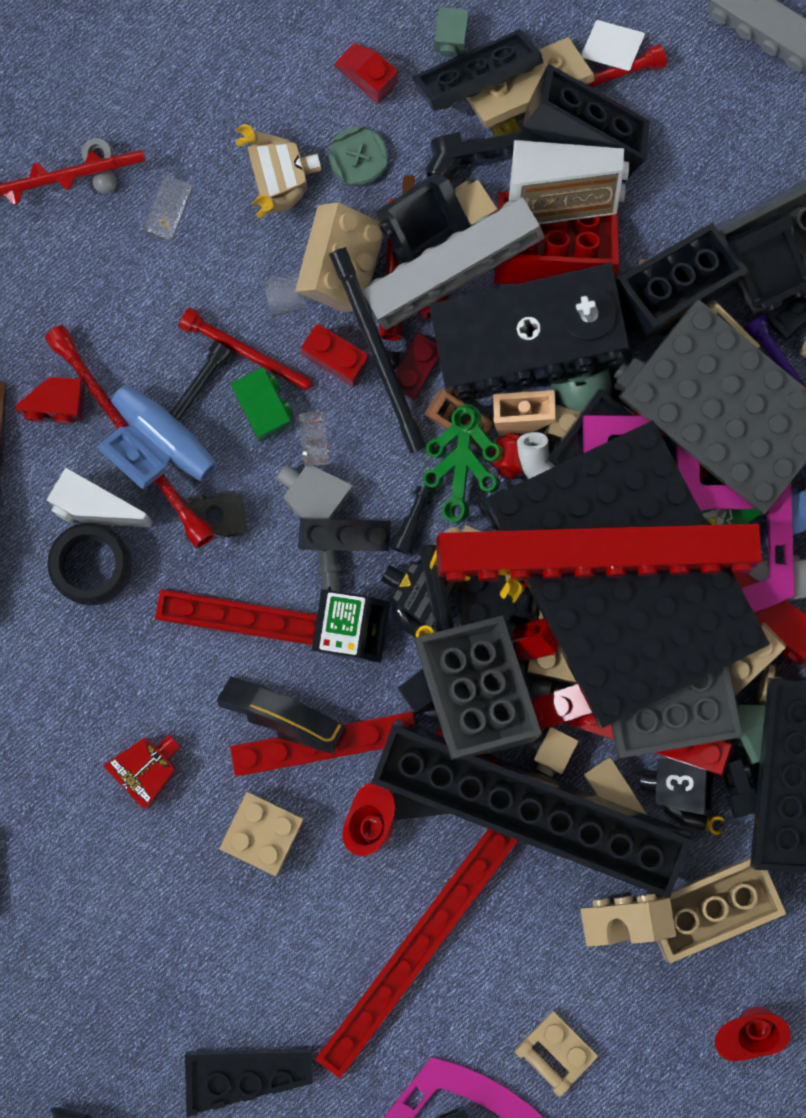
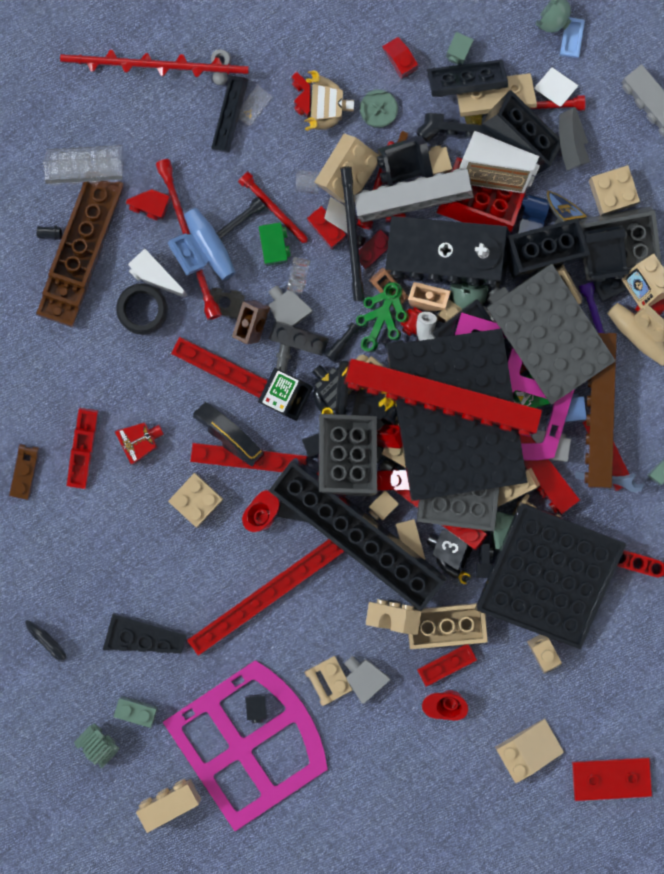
camera: 25 degrees right, 5 degrees up
(60, 808) = (82, 448): none -> red slope
(135, 231) = (229, 114): none -> black tile
(240, 178) = (302, 102): none -> red slope
(263, 531) = (250, 322): none -> reddish brown brick
(345, 329) = (336, 214): none -> white sticker
(612, 1031) = (365, 678): none -> light grey torso
(640, 237) = (534, 213): none -> dark blue door
(664, 113) = (572, 140): none -> dark grey slope
(681, 219) = (562, 208): none -> shield
(731, 969) = (446, 664): none -> red plate
(750, 169) = (614, 190): none -> tan brick

